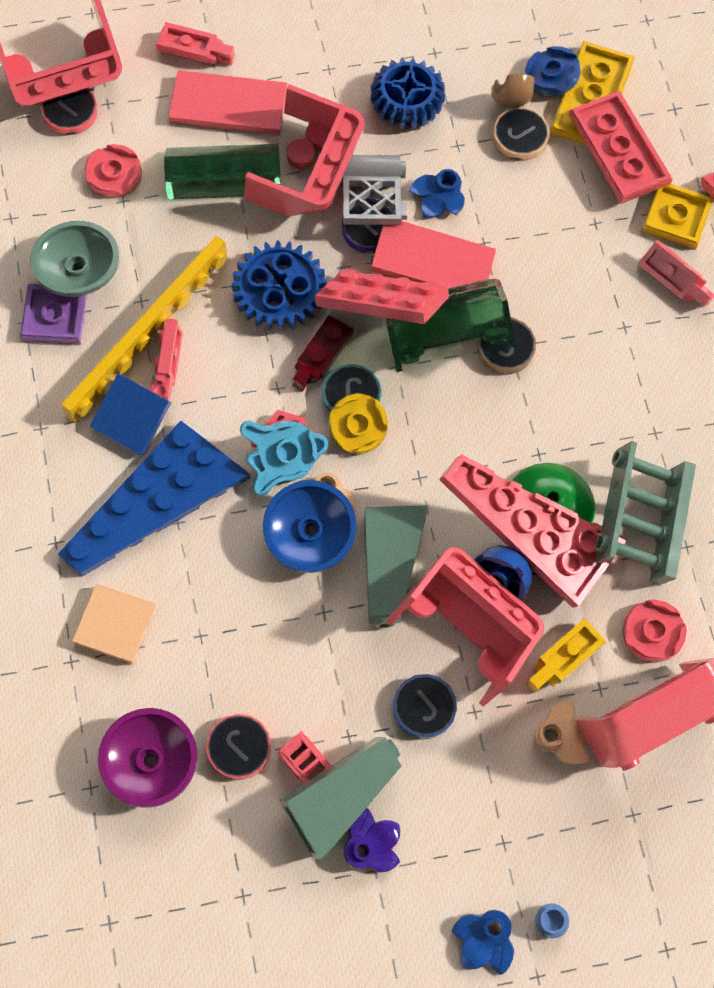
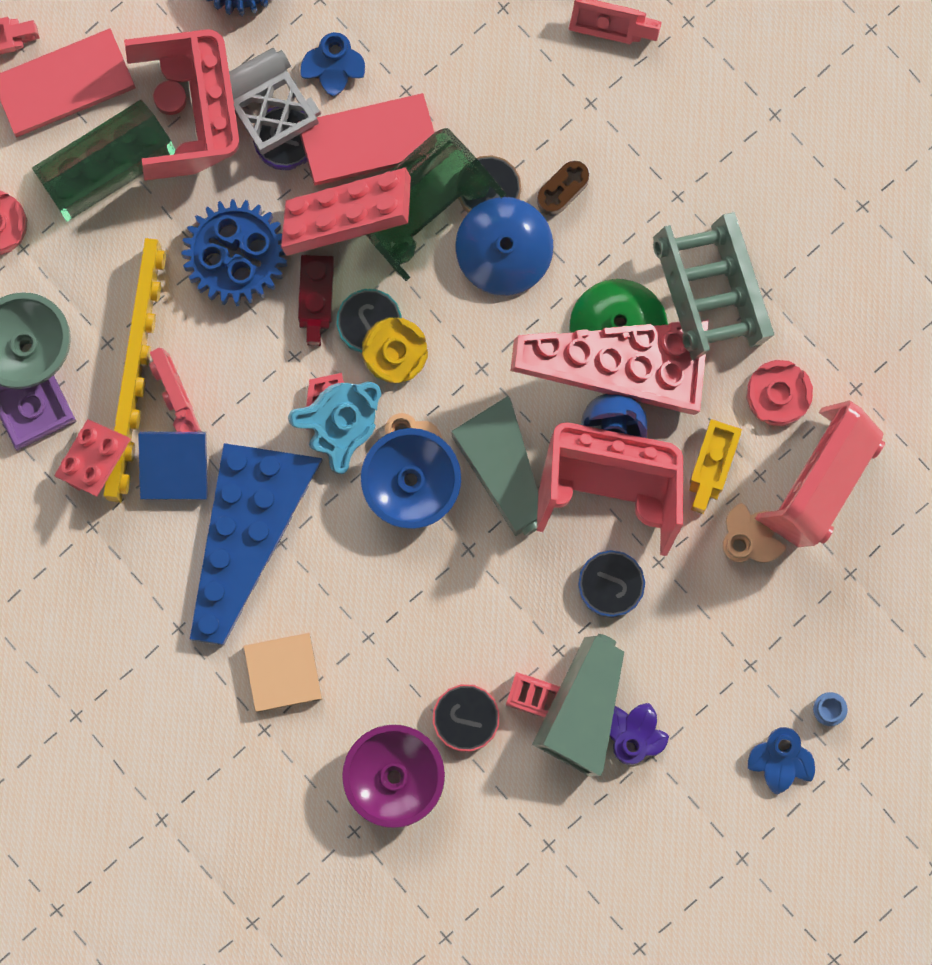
camera: 25 degrees left, 10 degrees up
(71, 371) = (92, 457): none -> coral hinge
(488, 412) = (498, 269): none -> blue dish
(563, 371) = (557, 183): none -> reddish brown beam

